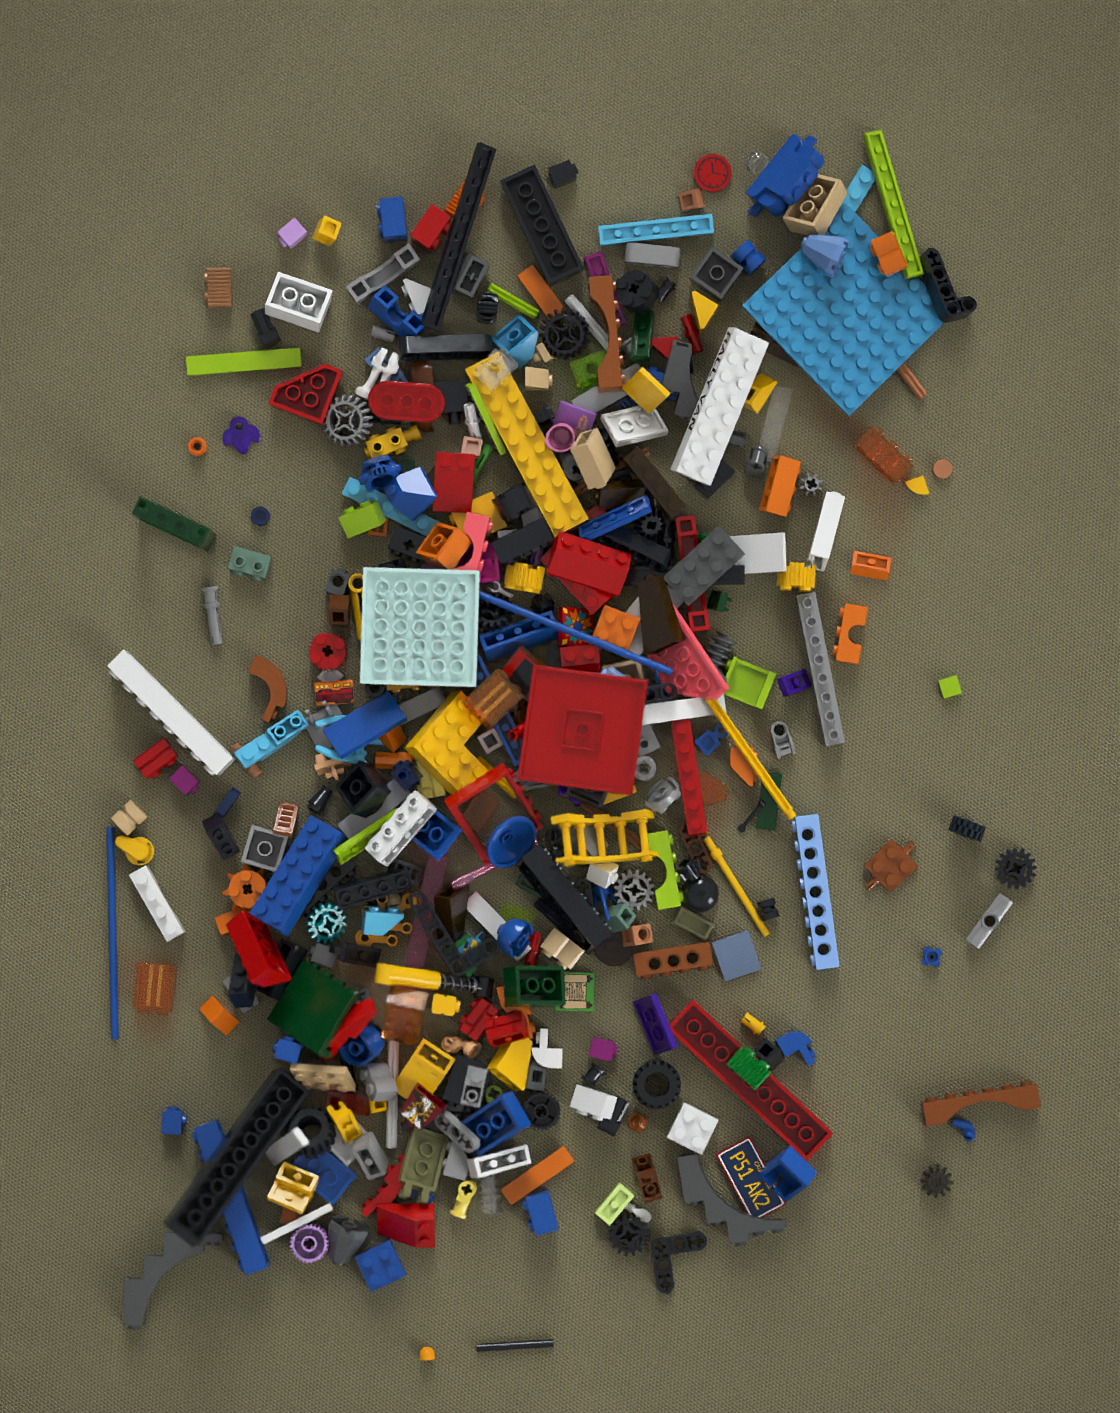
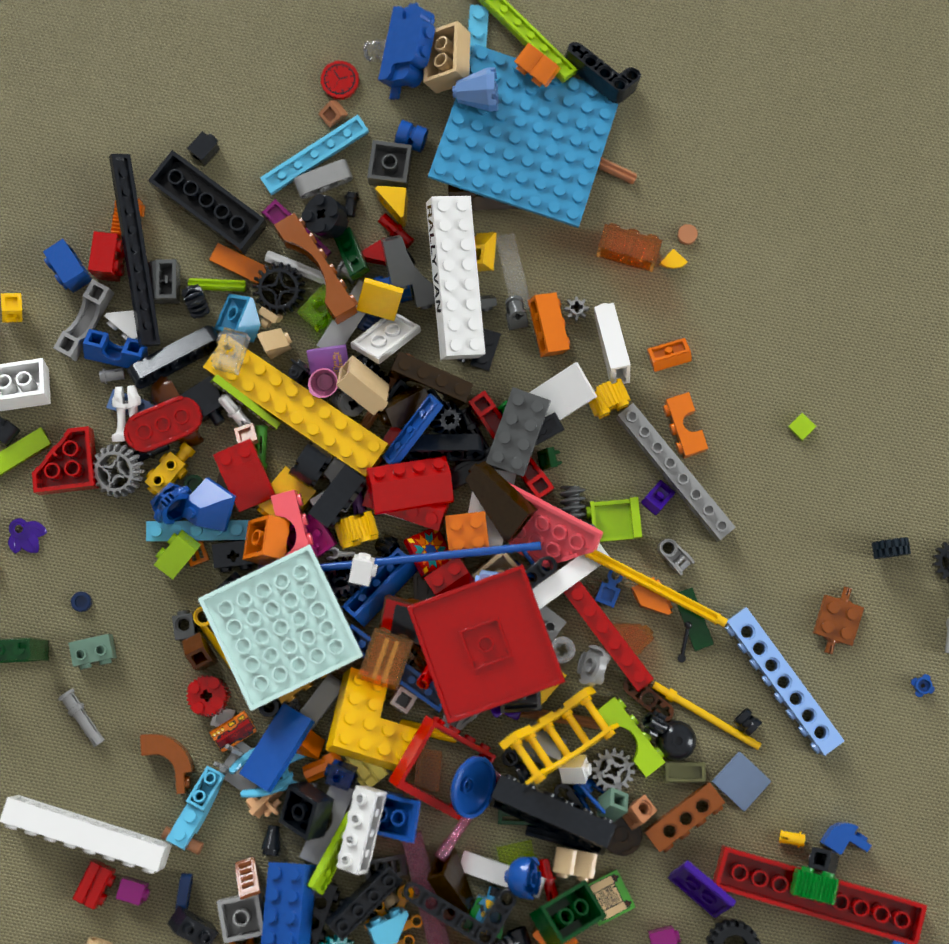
camera: 30 degrees left, 5 degrees down
(512, 614) = (362, 569): none -> white brick

